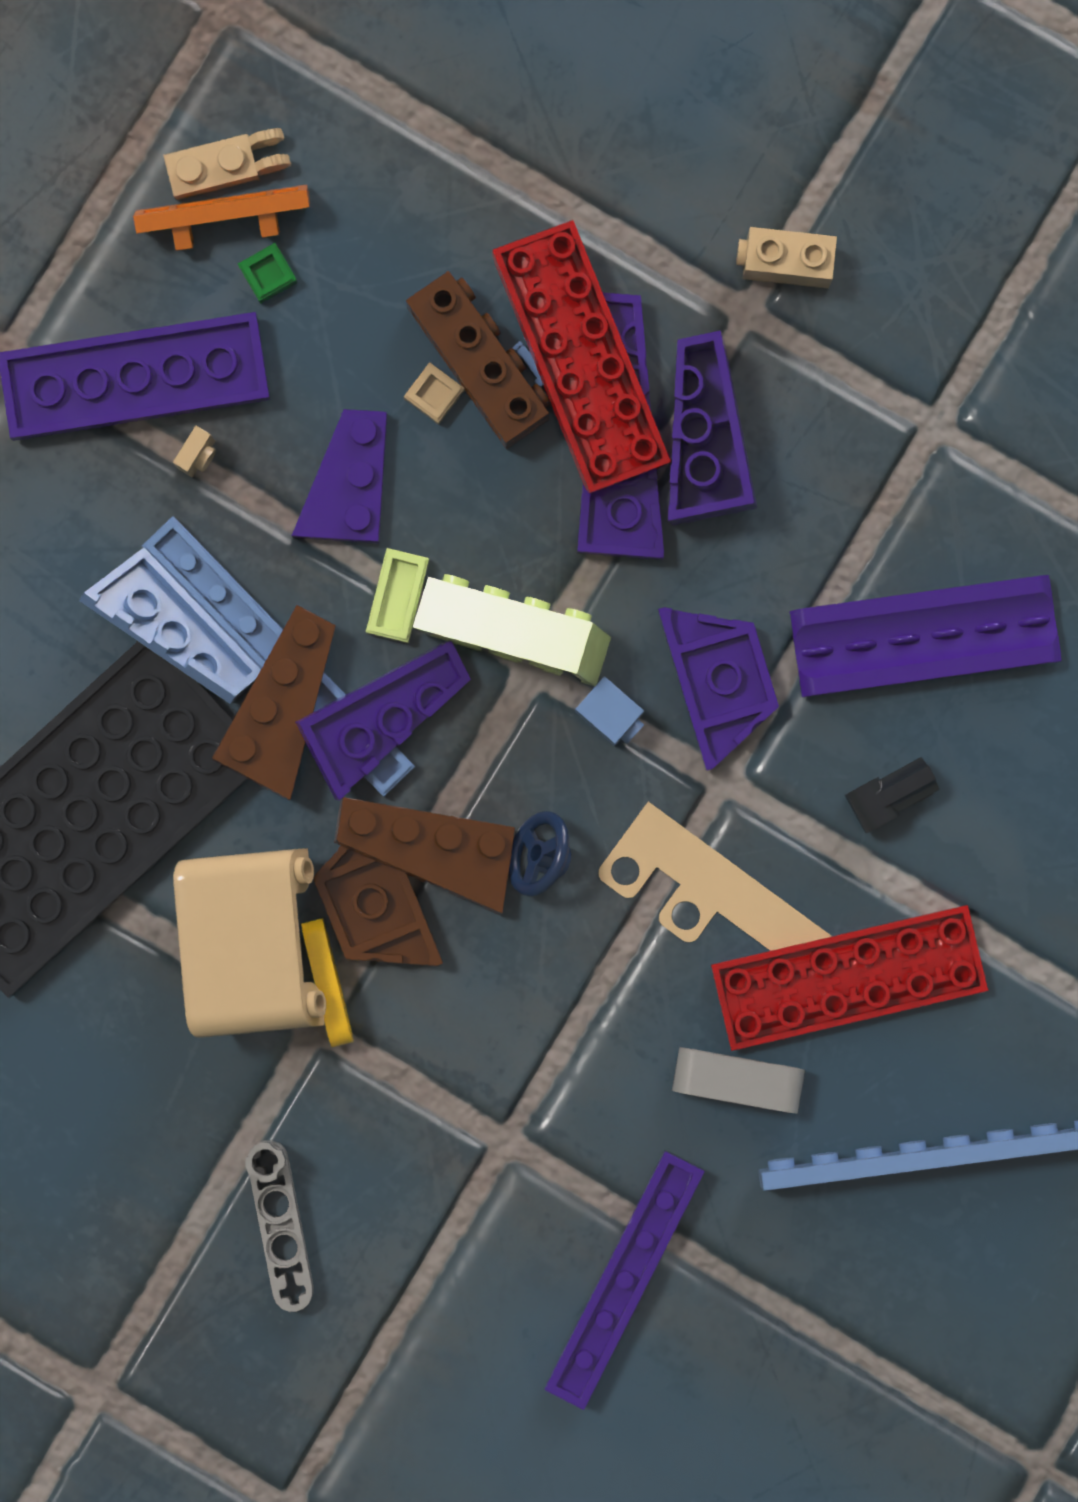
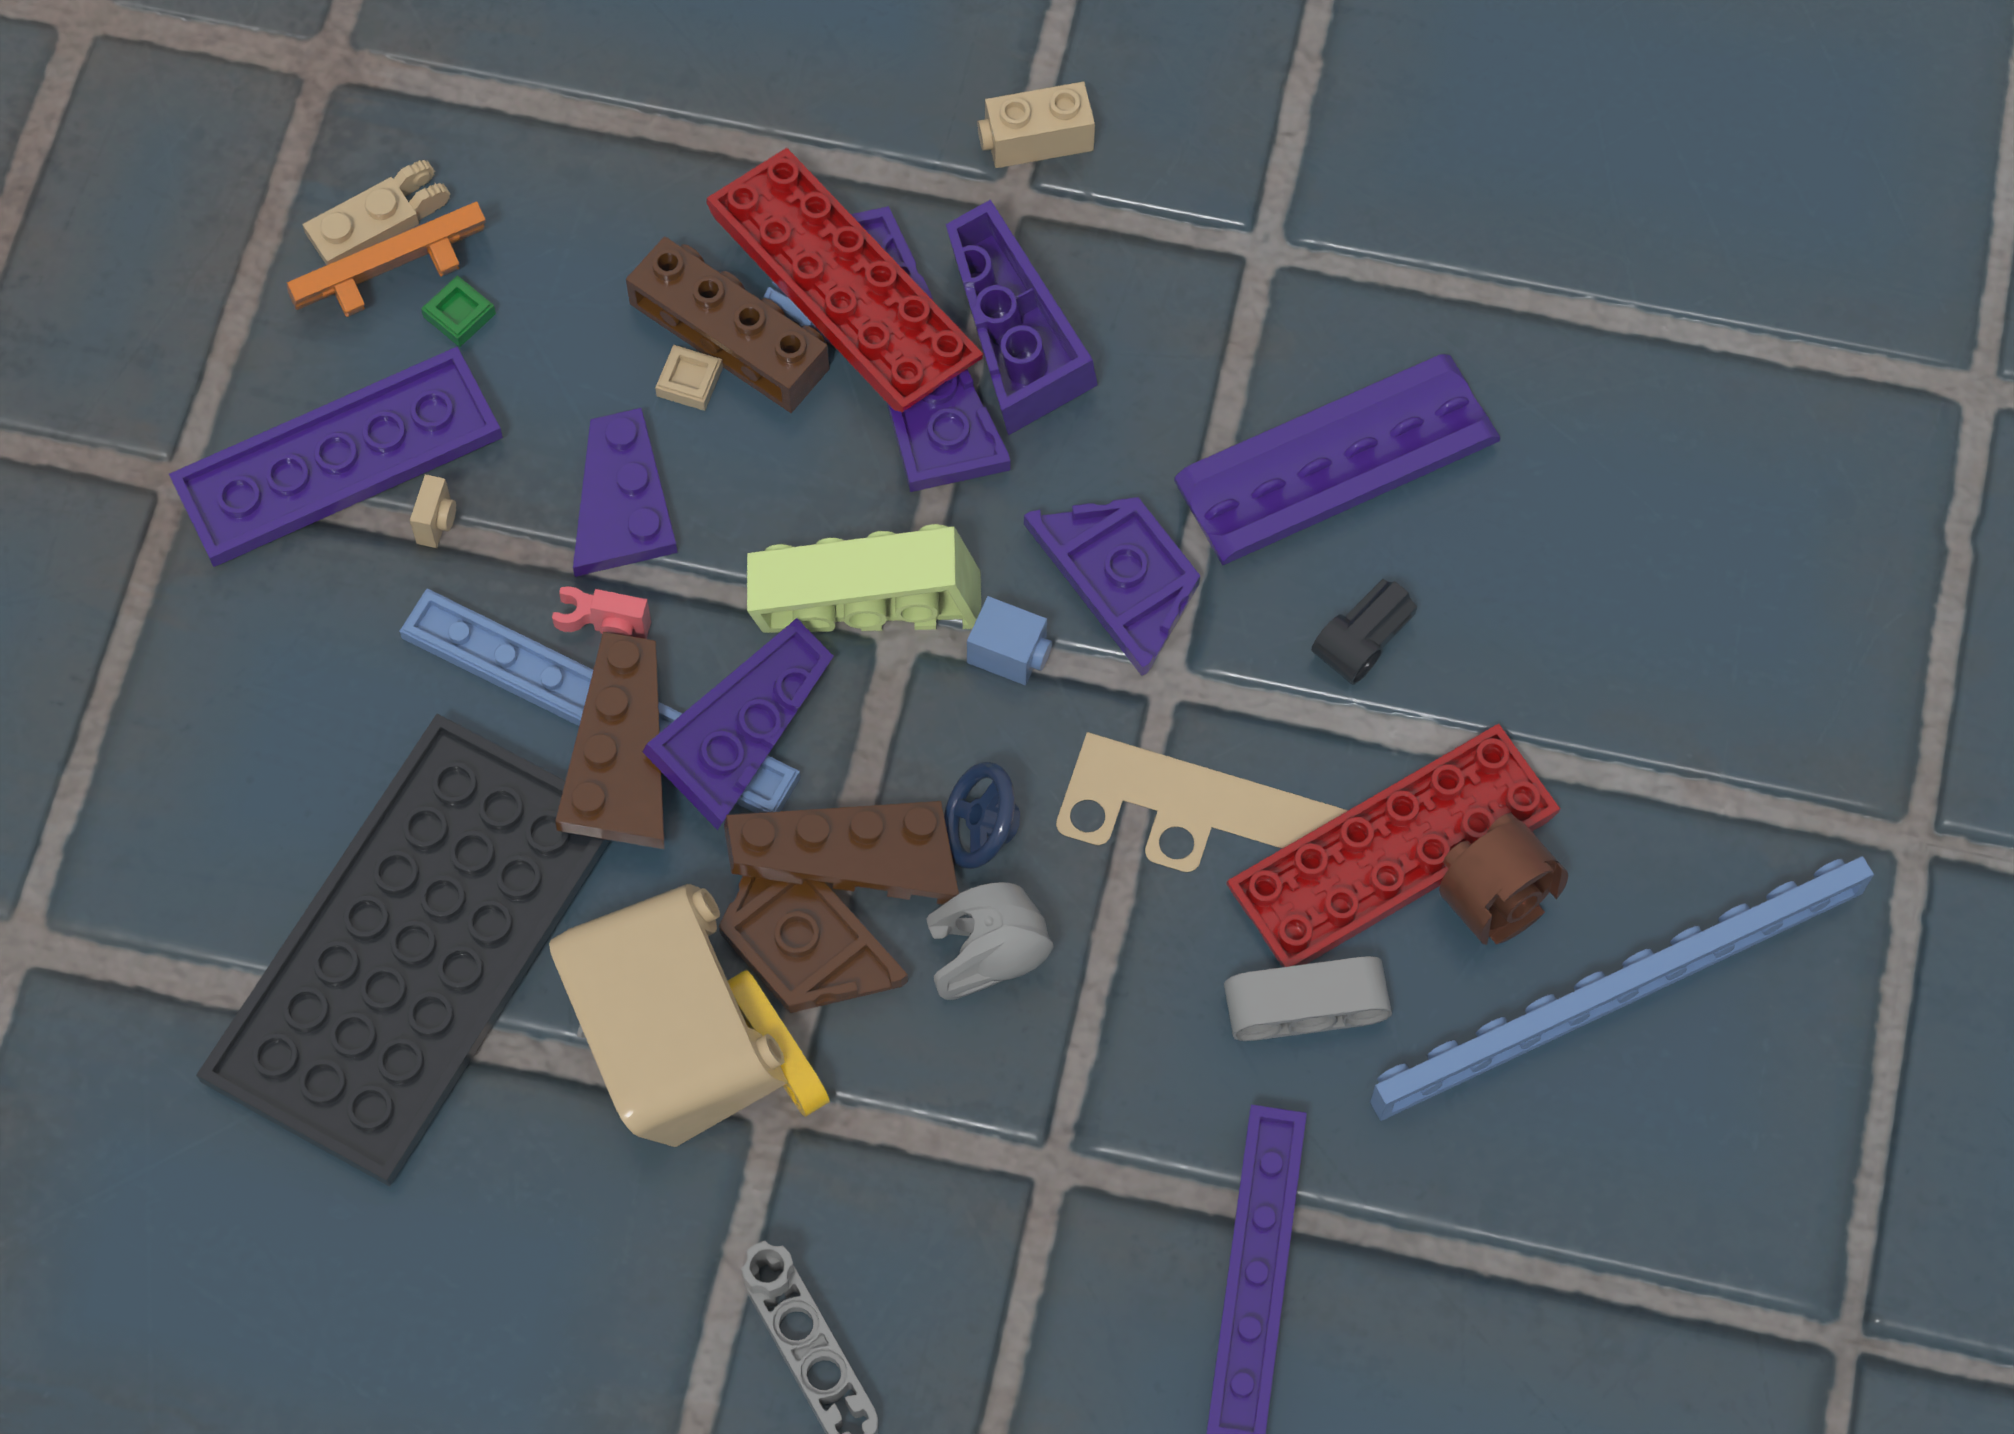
camera: 20 degrees left, 20 degrees down
(167, 620) = (456, 696): medium blue wing -> none
(312, 591) = (606, 611): none -> coral plate
(397, 595) = (717, 598): yellowish green tile -> none
(526, 963) = (1003, 940): none -> light grey helmet
(917, 1042) = (1501, 880): none -> copper brick

